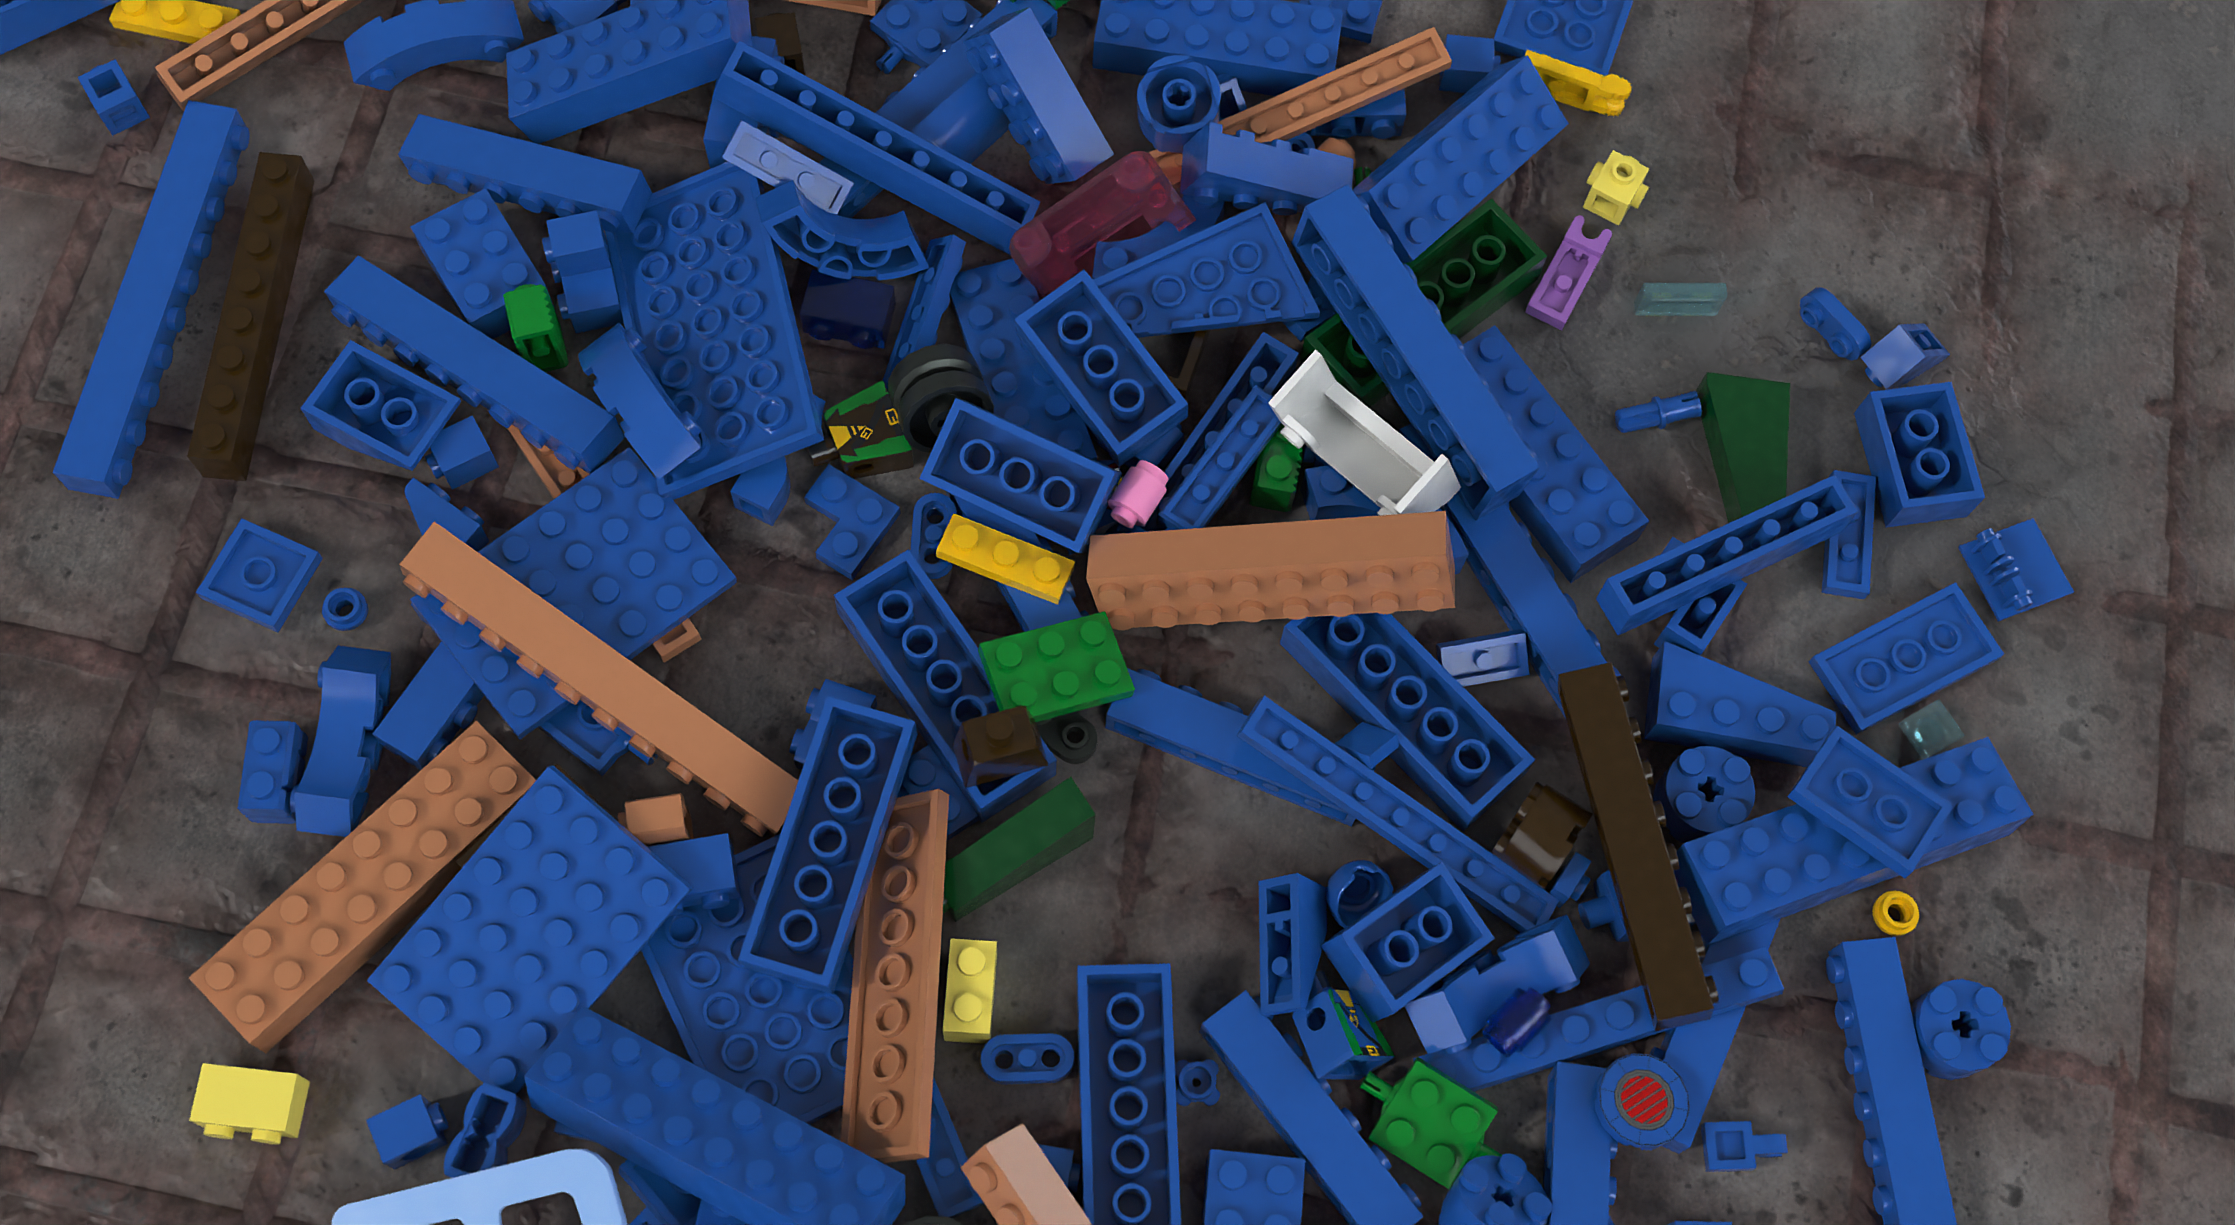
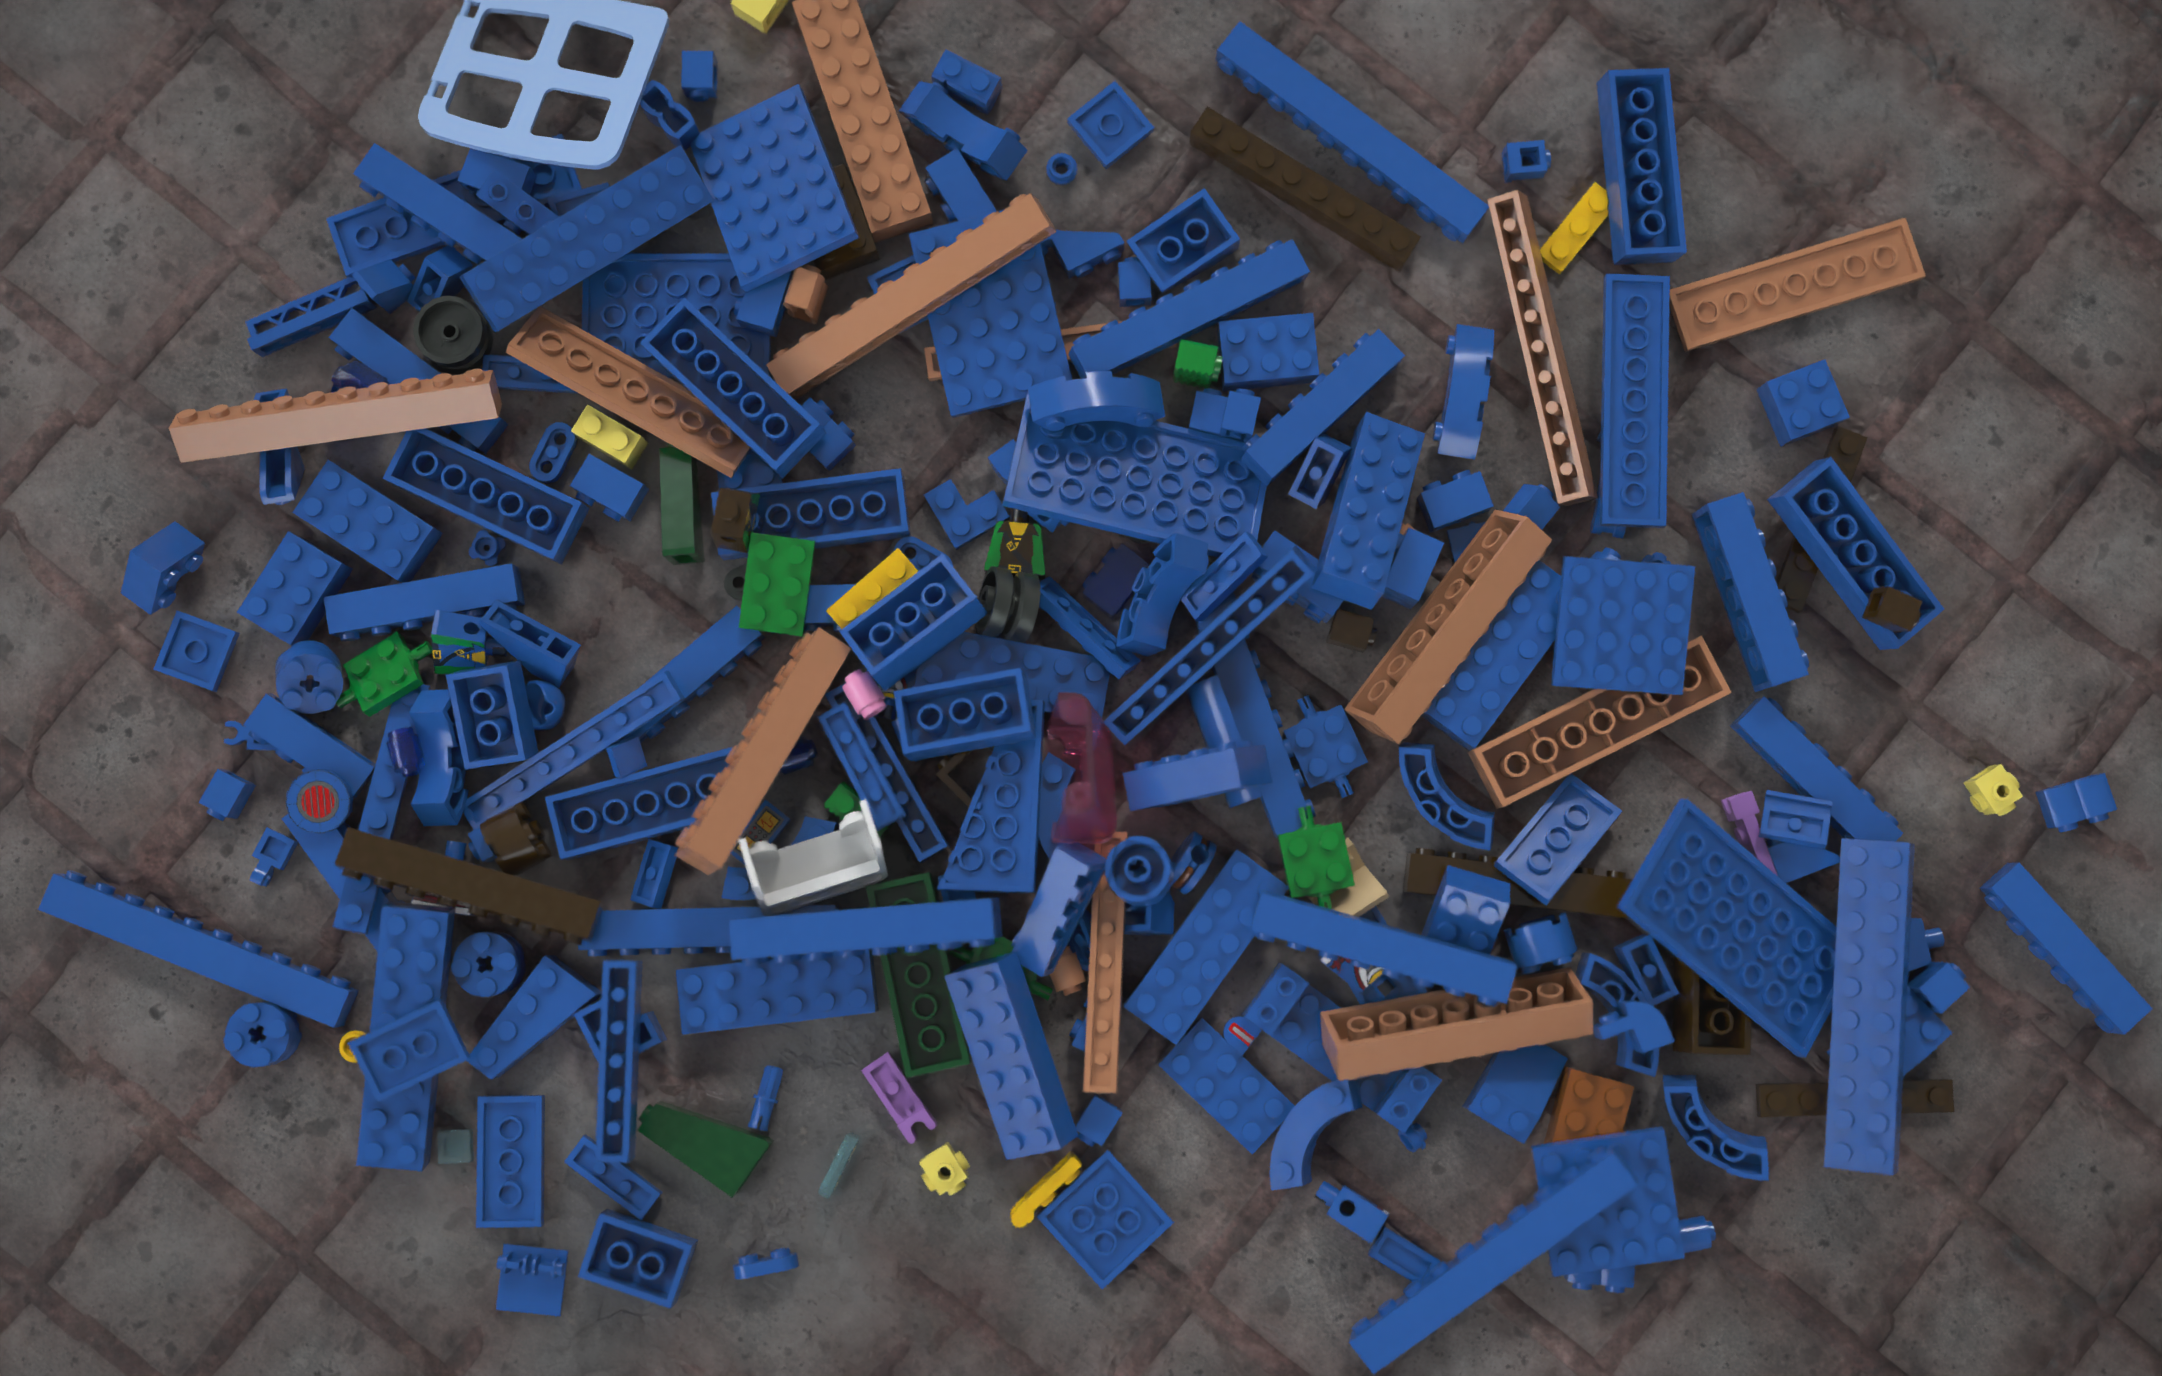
camera: 125 degrees right, 15 degrees up
(607, 137) = (1319, 471): none -> blue brick
(1038, 957) = (609, 488): none -> blue brick
(1119, 84) = (1191, 861): none -> blue head
(1903, 355) = (717, 1301): blue slope -> none

